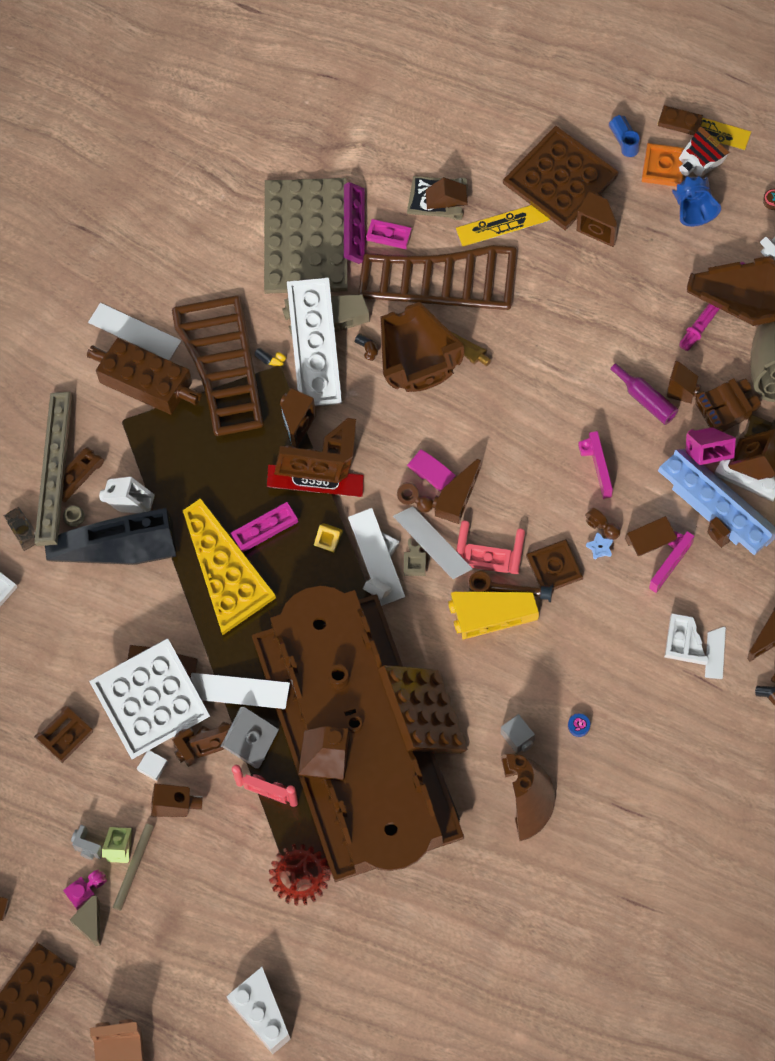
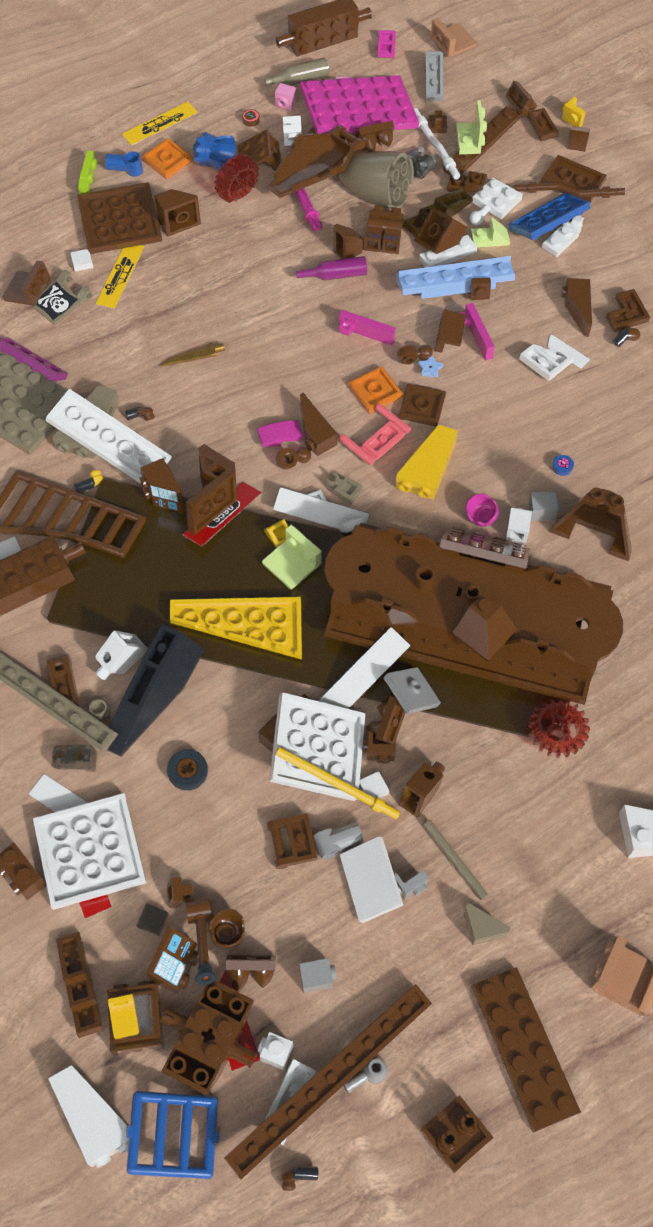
camera: 60 degrees left, 5 degrees down
(60, 622) = (186, 759): none -> black bush
(69, 812) = (371, 879): none -> white tile
(80, 892) = (448, 918): dark pink plate -> none
(82, 764) = (331, 842): none -> light grey piece
(117, 845) = (428, 857): yellowish green slope -> none
(136, 776) = (377, 804): none -> yellow bar
(258, 785) = (470, 702): coral plate -> none
(264, 527) = (234, 569): dark pink plate -> none
(306, 565) = (293, 558): none -> yellowish green bracket
(389, 234) = (61, 343): dark pink plate -> none
(417, 349) = (176, 375): reddish brown cone -> none
(424, 163) = (28, 286): none -> reddish brown bracket
(432, 542) = (342, 466): white sticker -> none
(445, 298) = (133, 354): reddish brown bar -> none
(446, 194) = (65, 288): reddish brown slope -> none
(472, 685) = (482, 510): none -> dark pink hair
(480, 576) = (406, 451): reddish brown piece -> none
(482, 724) = (518, 525): none -> white brick
(491, 182) = (81, 260): none -> white tile
(540, 516) = (375, 388): none -> orange tile
(586, 115) = (87, 174): none -> lime hinge
(677, 241) = (236, 178): none -> clear red gear
(680, 120) = (142, 129): reddish brown plate -> none
(702, 154) = (180, 129): torso -> none
(709, 445) = (409, 253): dark pink torso -> none
(734, 236) = (262, 148): none -> reddish brown bracket

